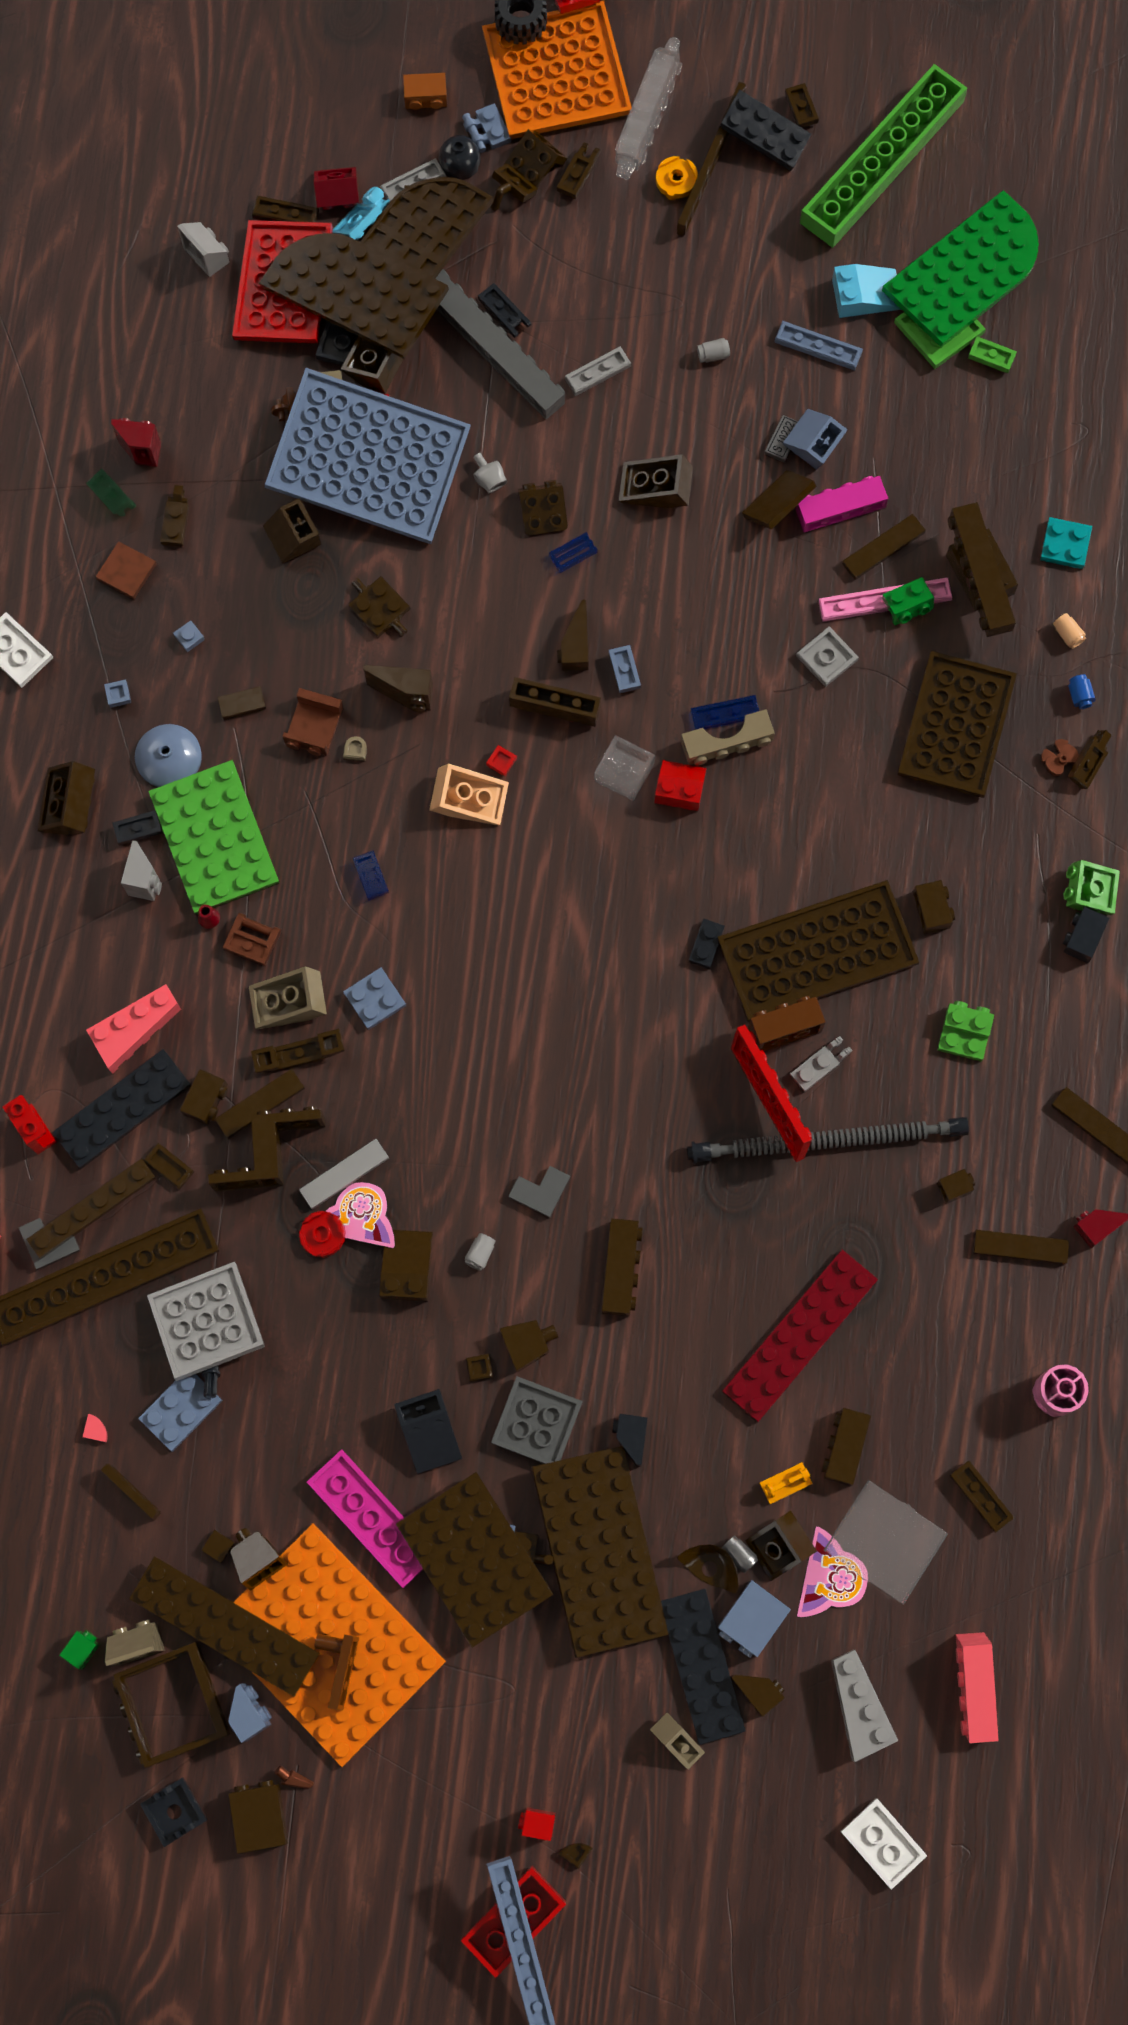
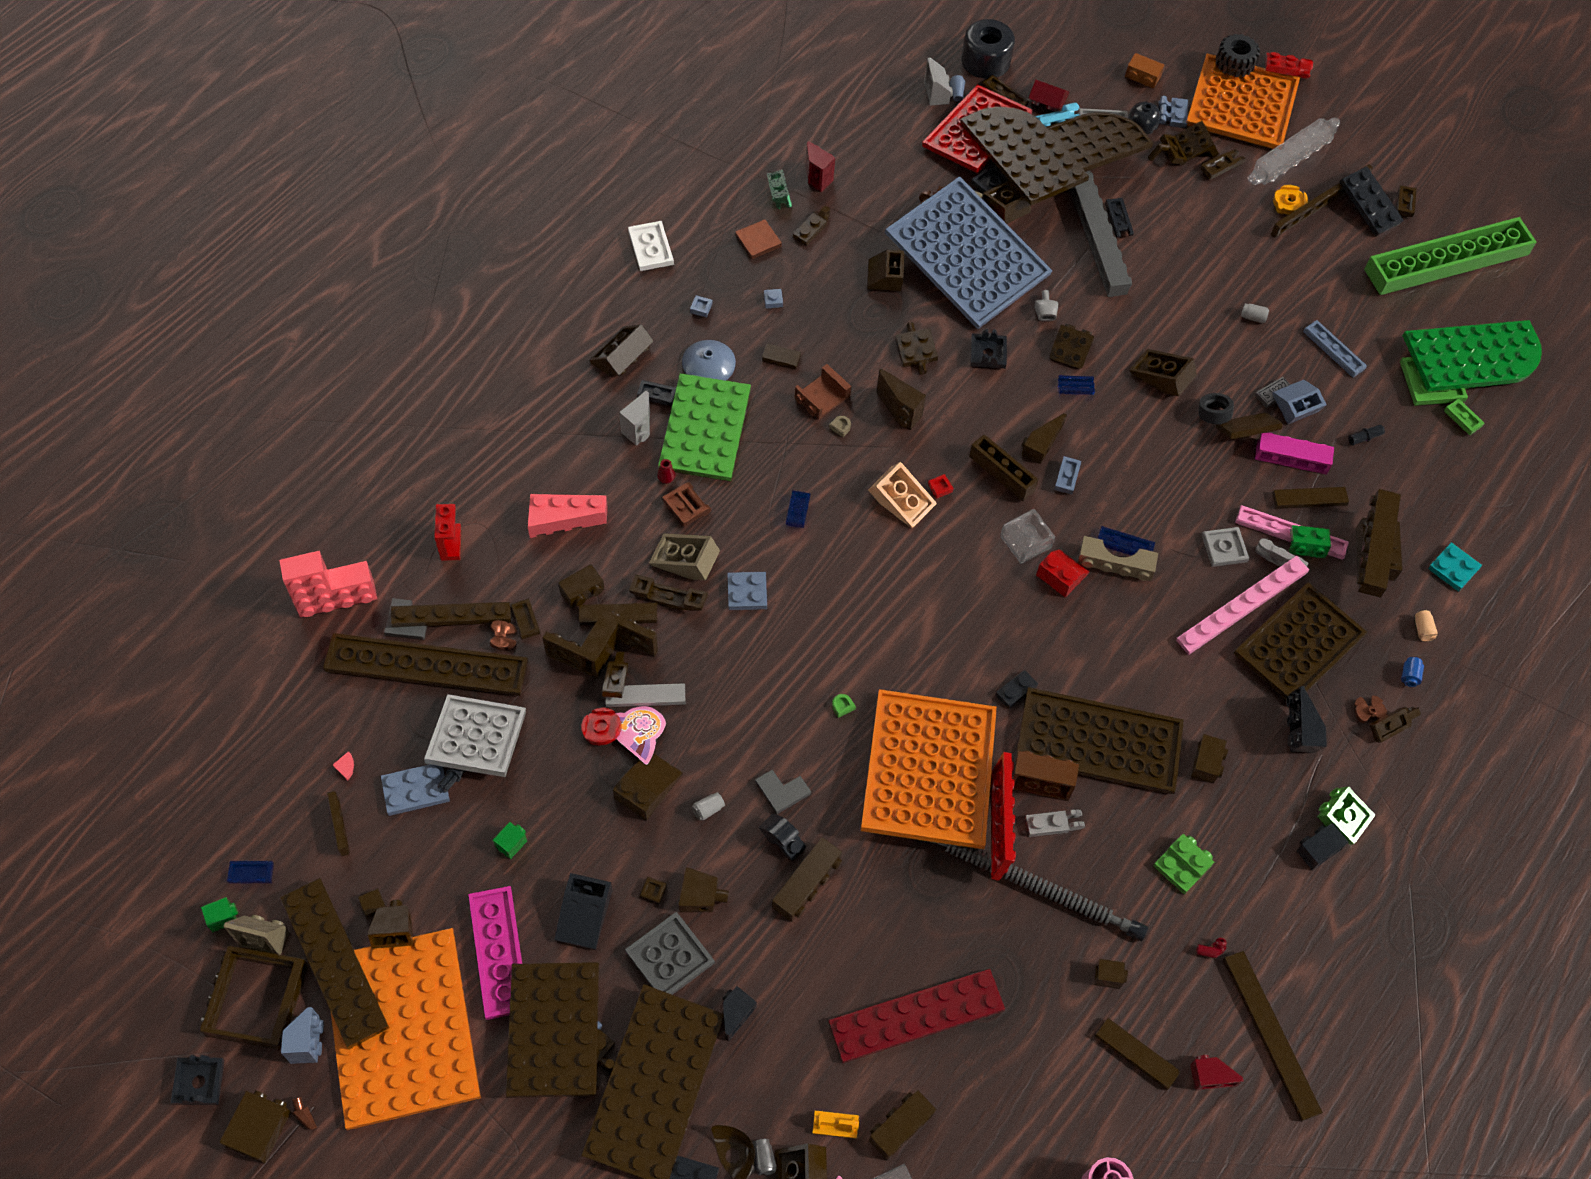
camera: 25 degrees right, 15 degrees down
(77, 1590) = (250, 872): none -> clear blue tile
(121, 1109) = (519, 563): black plate -> none
(152, 1193) = (500, 631): none -> copper piece
(226, 234) = (957, 83): none -> sand blue cone
(239, 183) = (987, 48): none -> black piece
(304, 1175) = (615, 677): none -> dark brown hinge
(310, 1403) = (510, 840): none -> green brick
(347, 1649) = (410, 1037): reddish brown piece -> none
(458, 552) = (991, 341): none -> black piece
(545, 1065) = (842, 705): none -> bright green tile
(570, 1238) = (784, 834): none -> black brick
(597, 371) = (1163, 285): light grey tile -> none
(672, 1083) = (930, 769): none -> orange plate
(732, 485) = (1216, 416): none -> black tyre
(860, 289) = (1385, 329): medium azure slope -> none
(880, 716) = (1242, 605): none -> bright pink plate
(889, 637) = (1274, 554): none -> light grey hinge
(903, 436) = (1366, 434): none -> black axle
(1008, 818) = (1305, 723): none -> black slope
(1038, 1102) = (1213, 950): none -> dark red arm

